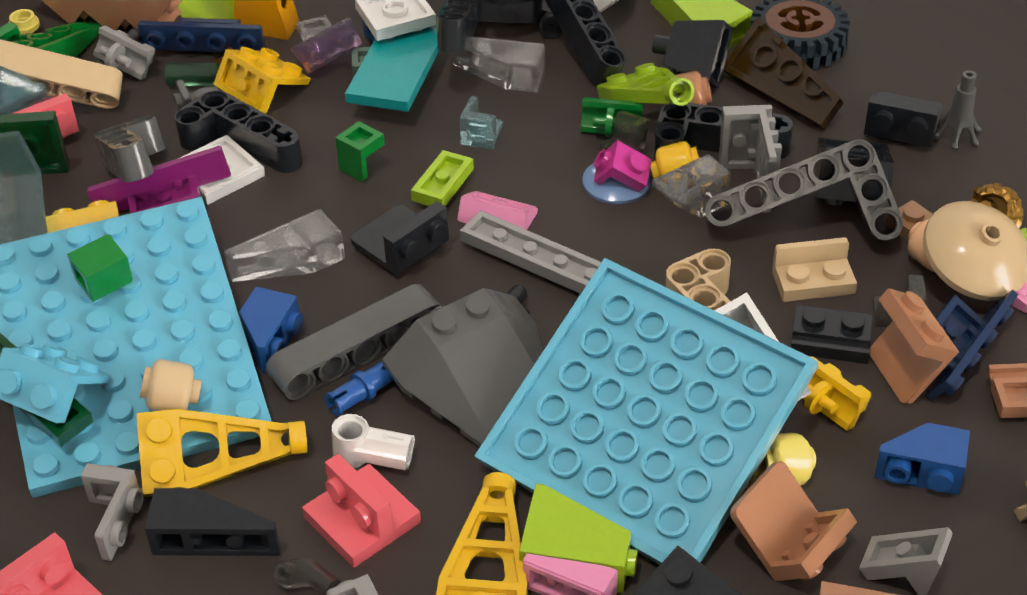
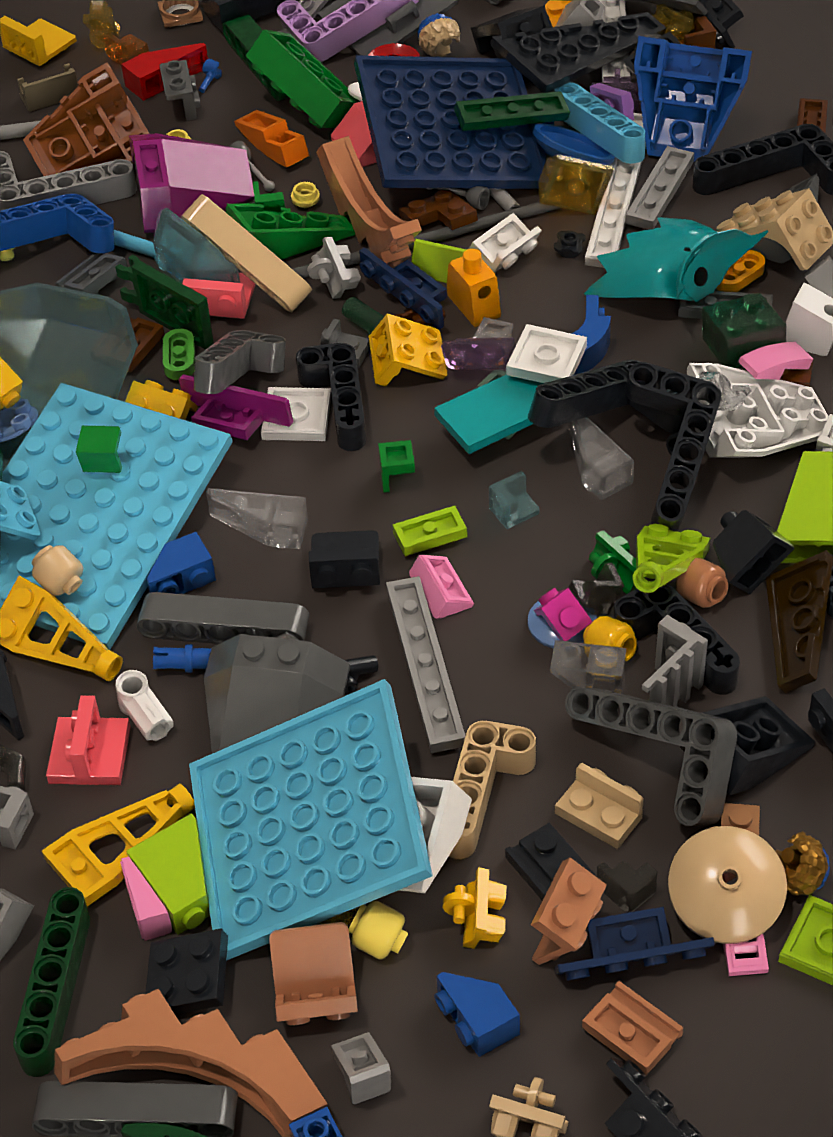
camera: 45 degrees right, 5 degrees up
(59, 185) = (178, 353): none -> bright green plate

